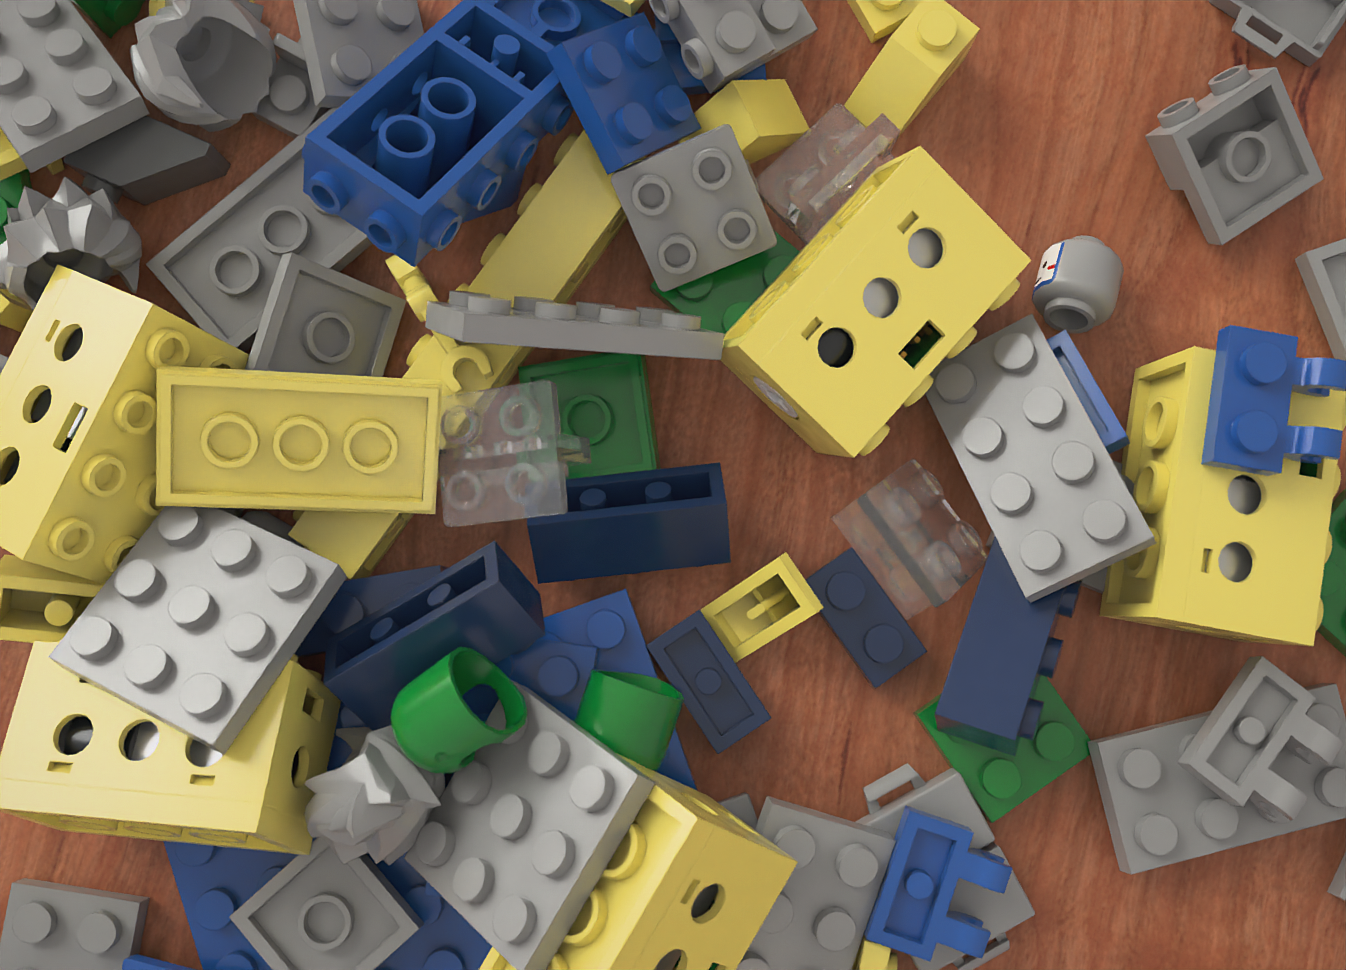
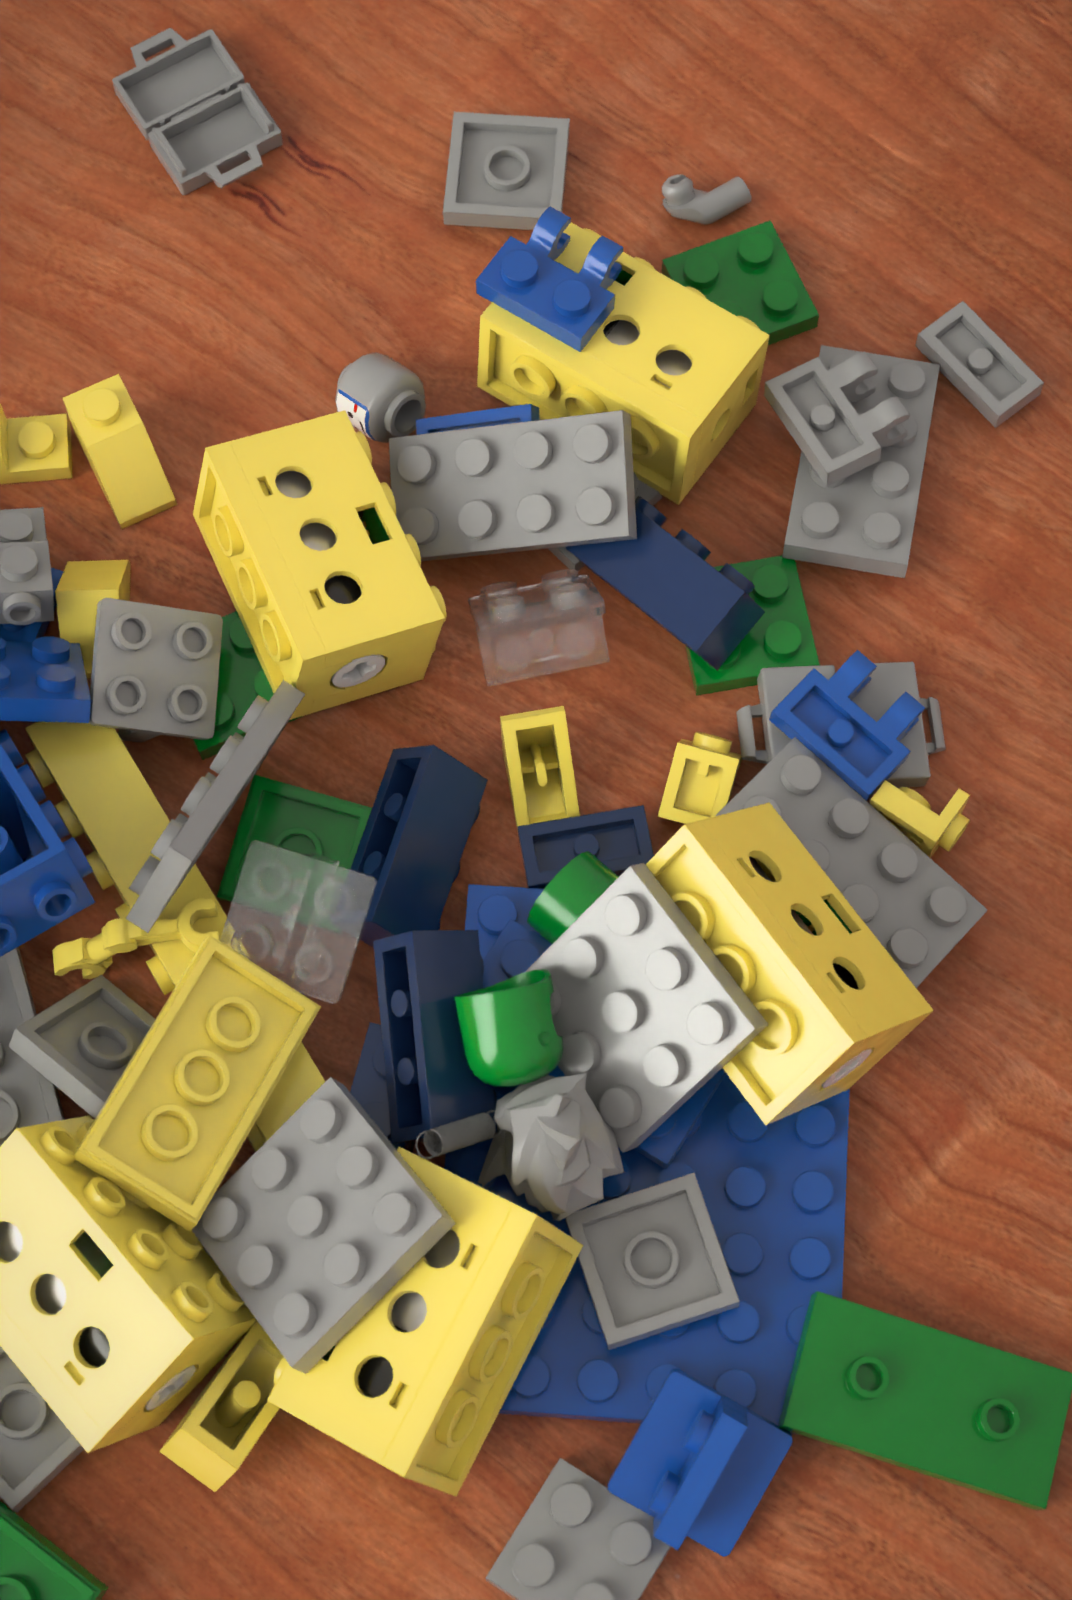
camera: 65 degrees left, 15 degrees down
(336, 708) = (458, 1134): none -> light grey piece
(822, 760) = (699, 779): none -> light yellow bracket
(825, 169) = (170, 553): clear bracket -> none
(864, 618) = (596, 695): dark blue plate -> none
(1235, 151) = (328, 228): light grey plate -> none

